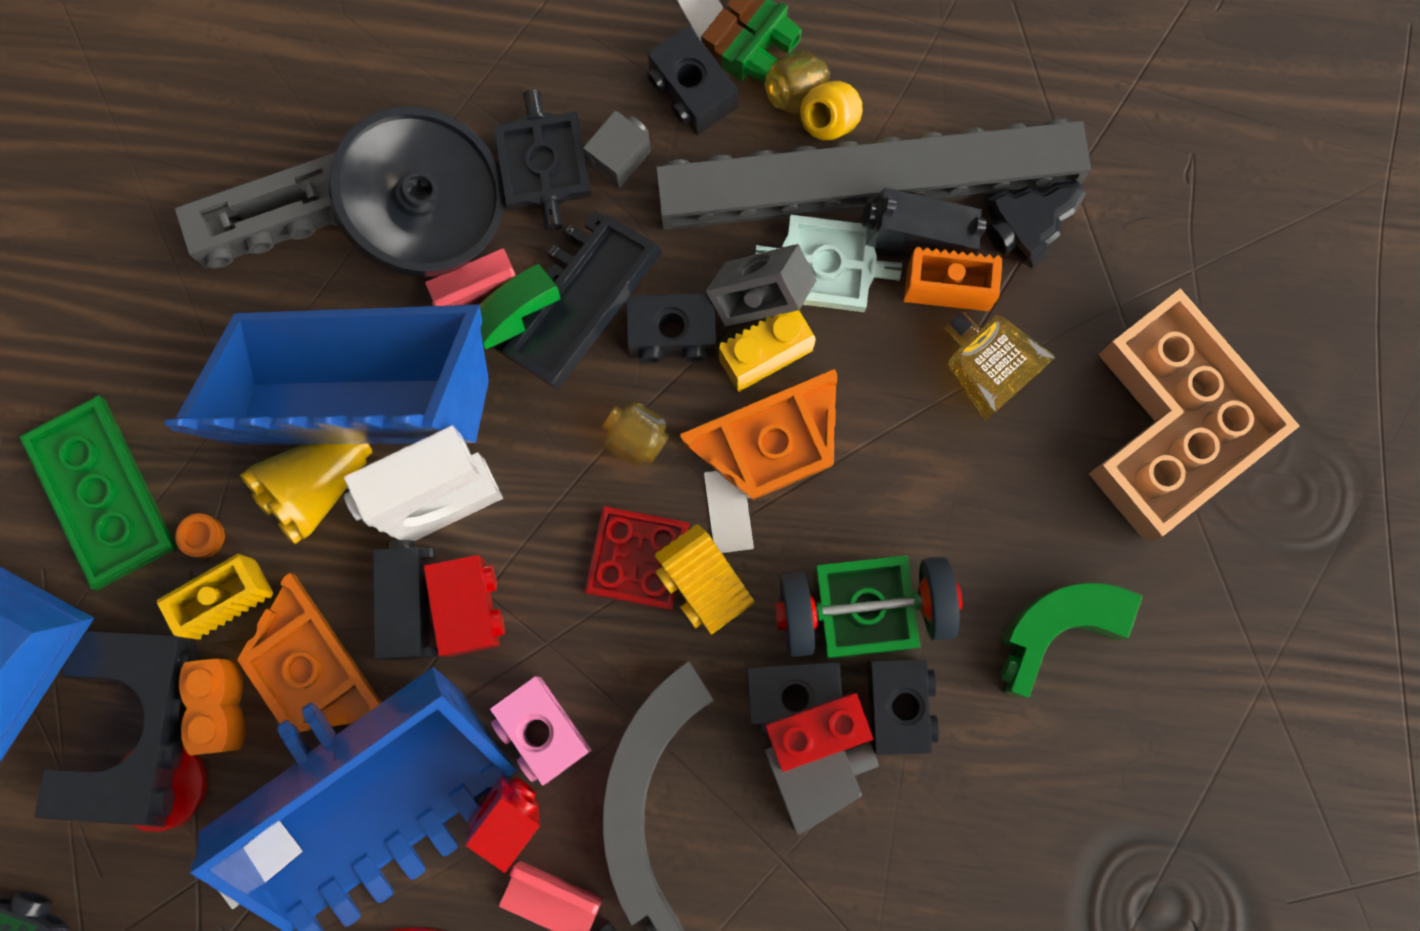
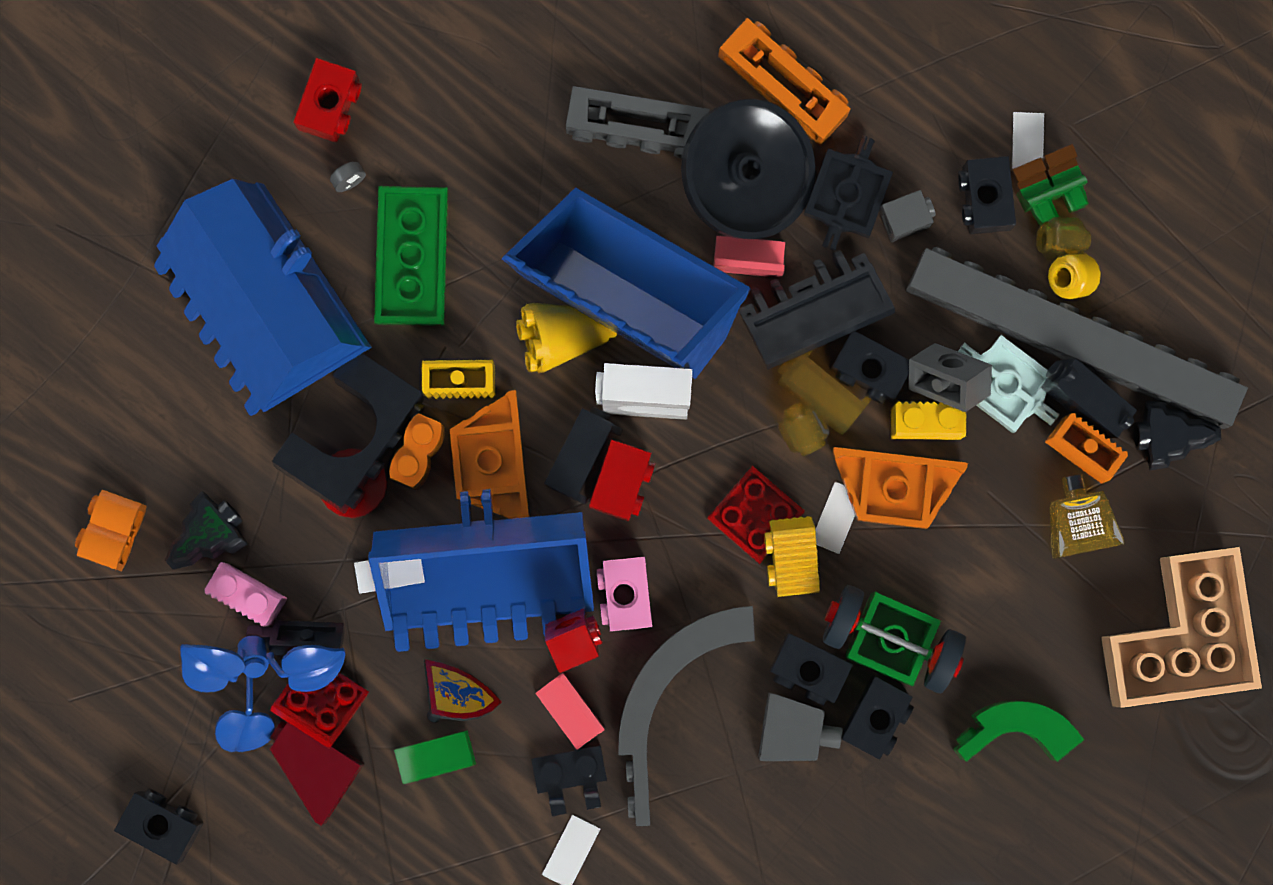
camera: 25 degrees right, 5 degrees up
(200, 536) = (465, 327): orange tile -> none
(348, 80) = (783, 59): none -> orange brick
(512, 301) = (774, 289): green slope -> none
(621, 380) = (818, 389): none -> clear yellow brick
(818, 732) = (812, 701): red brick -> none

